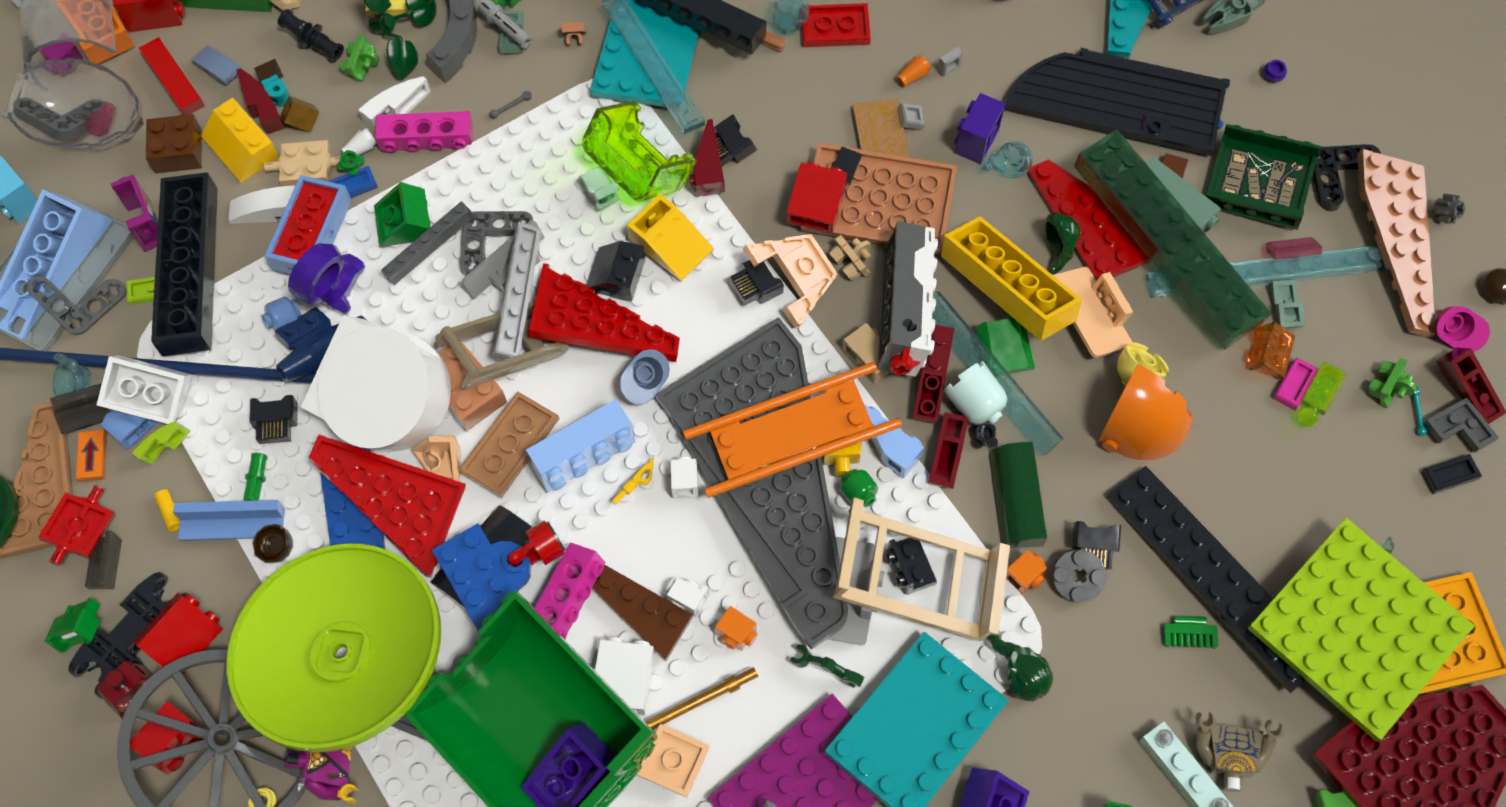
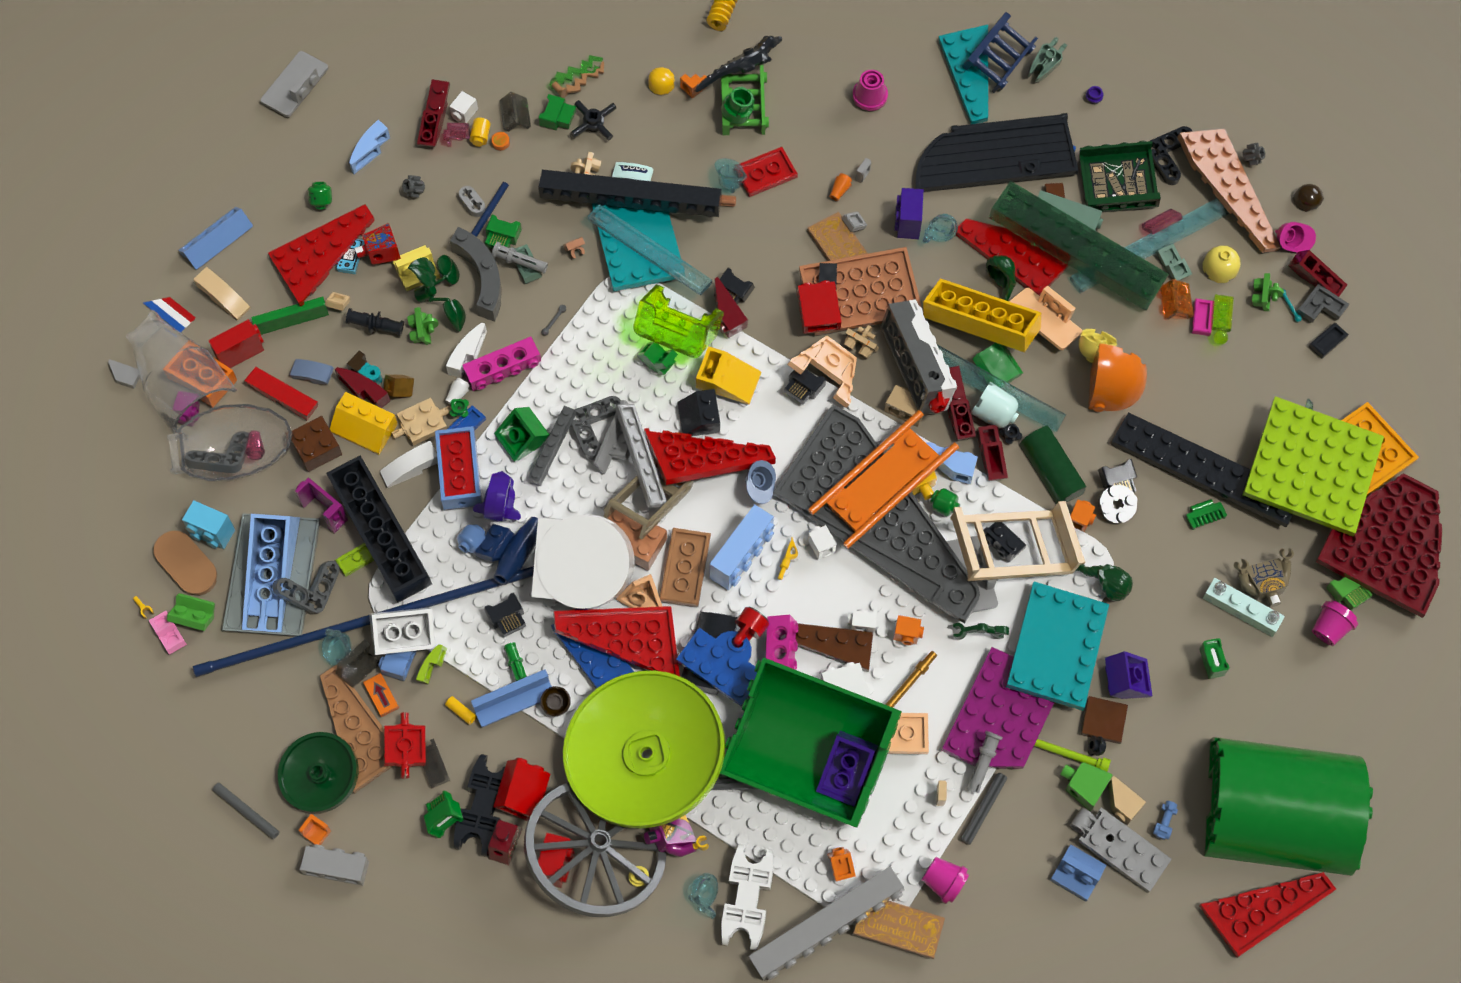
camera: 25 degrees left, 0 degrees up
(1349, 327) = (1221, 264): none -> light yellow cylinder

